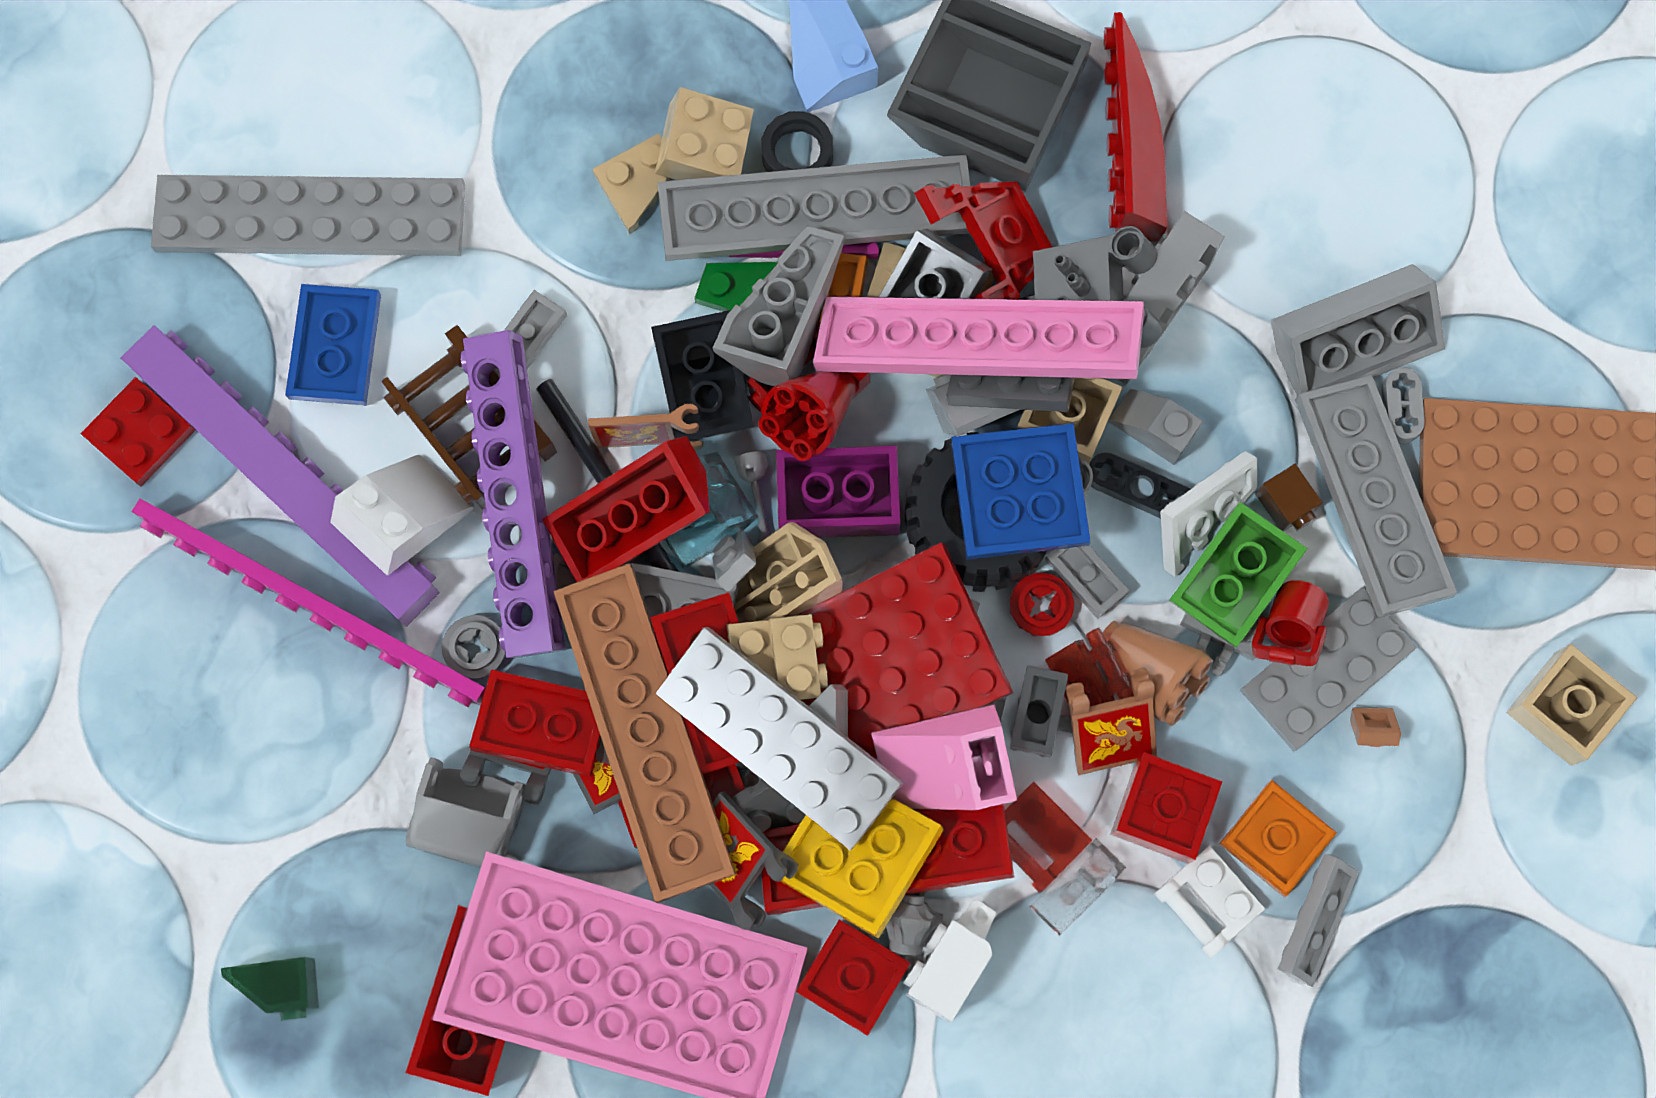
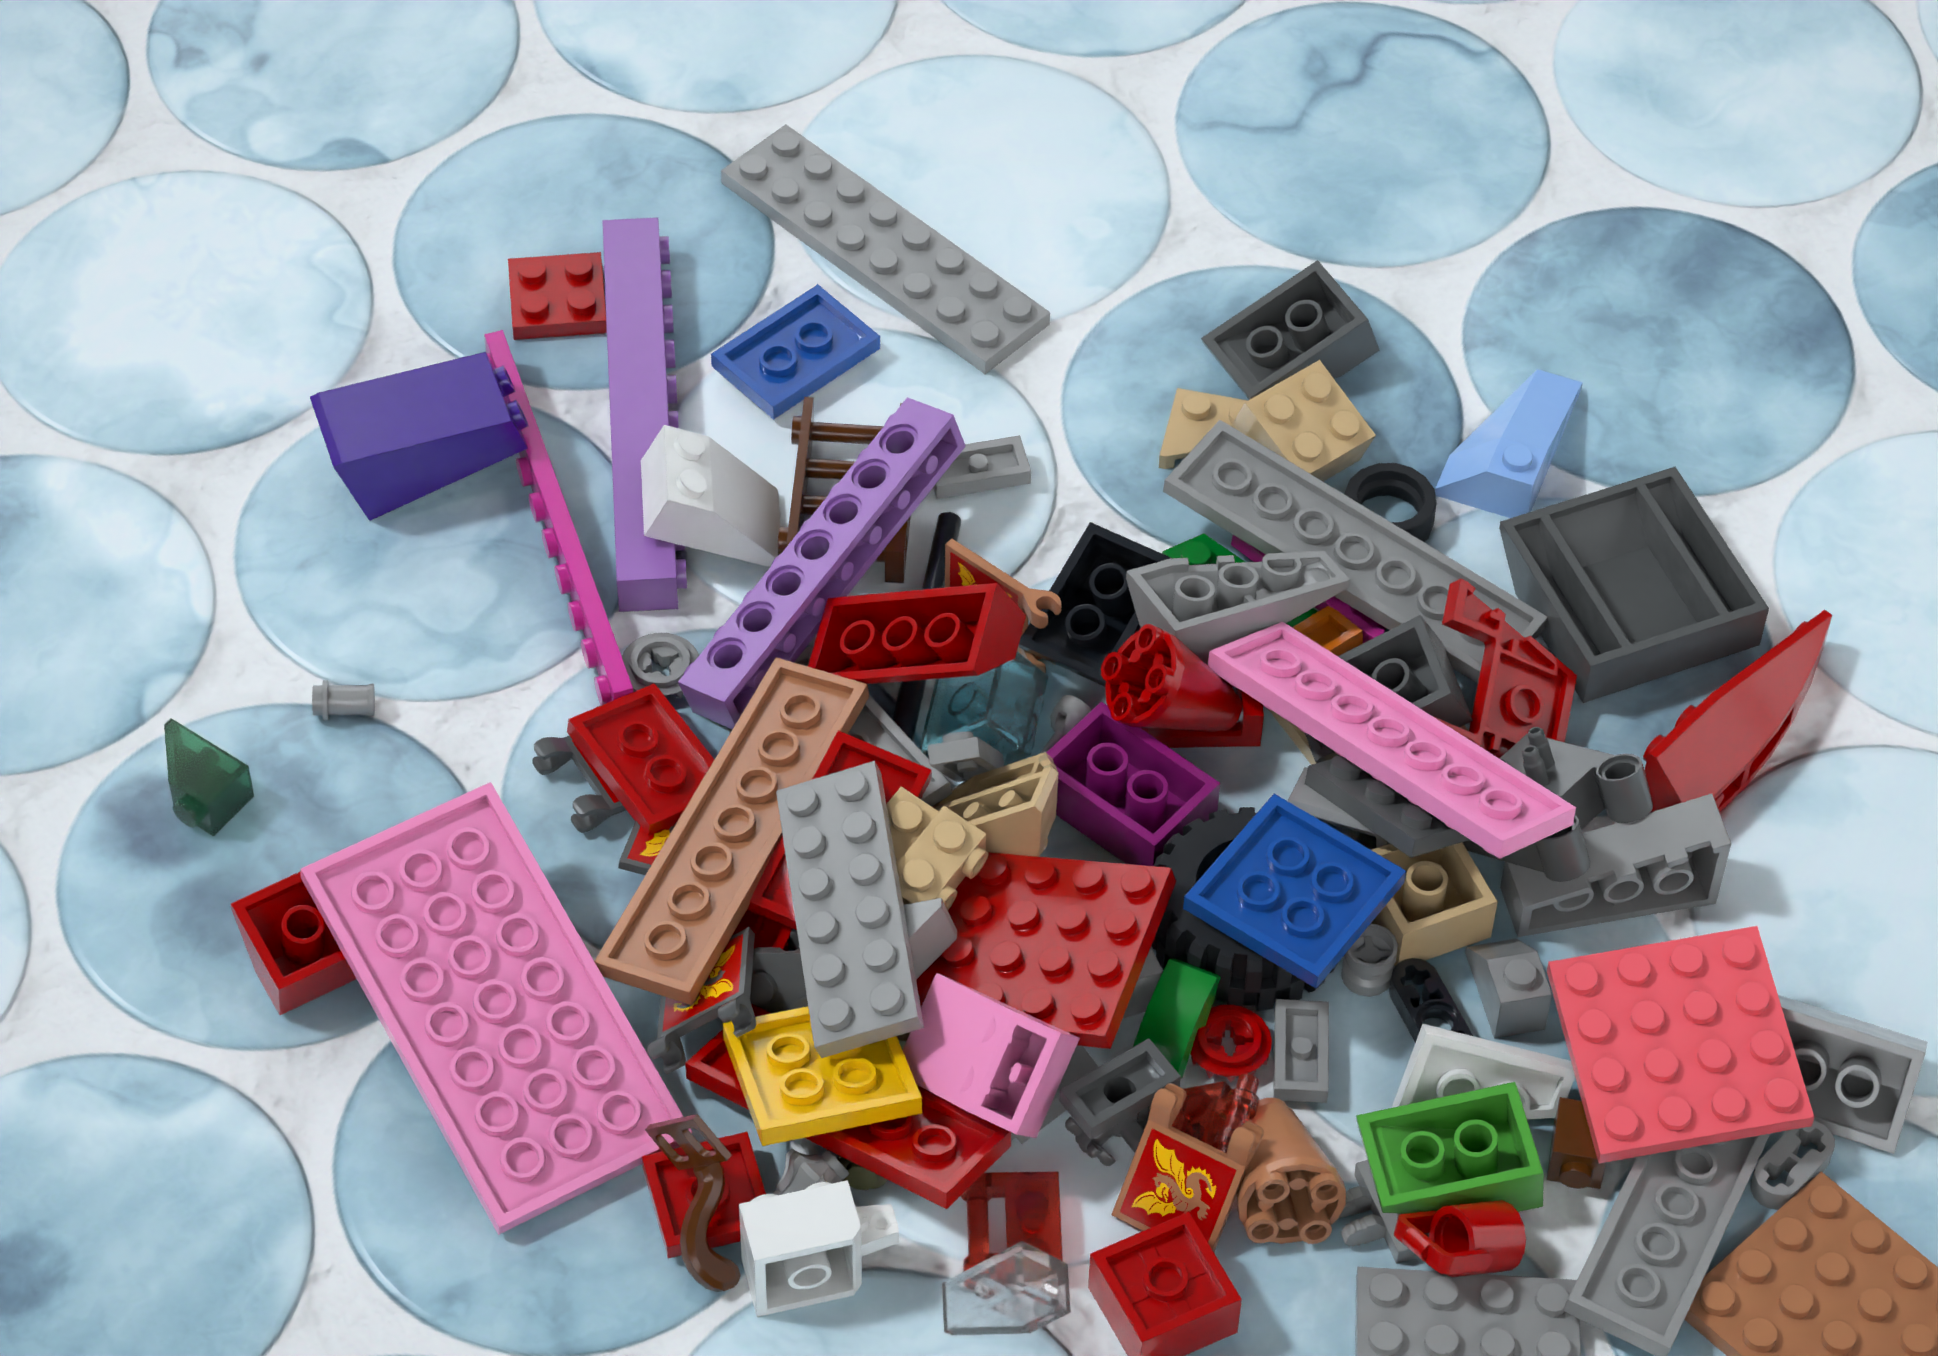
camera: 40 degrees right, 25 degrees down
(165, 623) = (419, 430): none -> dark purple slope
(305, 847) = (342, 700): none -> light grey pin
(463, 819) = (489, 754): light grey piece -> none
(630, 75) = (1290, 330): none -> dark grey slope
(896, 1025) = (703, 1263): none -> reddish brown piece
(1007, 622) = (1178, 1010): none -> green slope
(1305, 396) = (1679, 1044): none -> coral plate

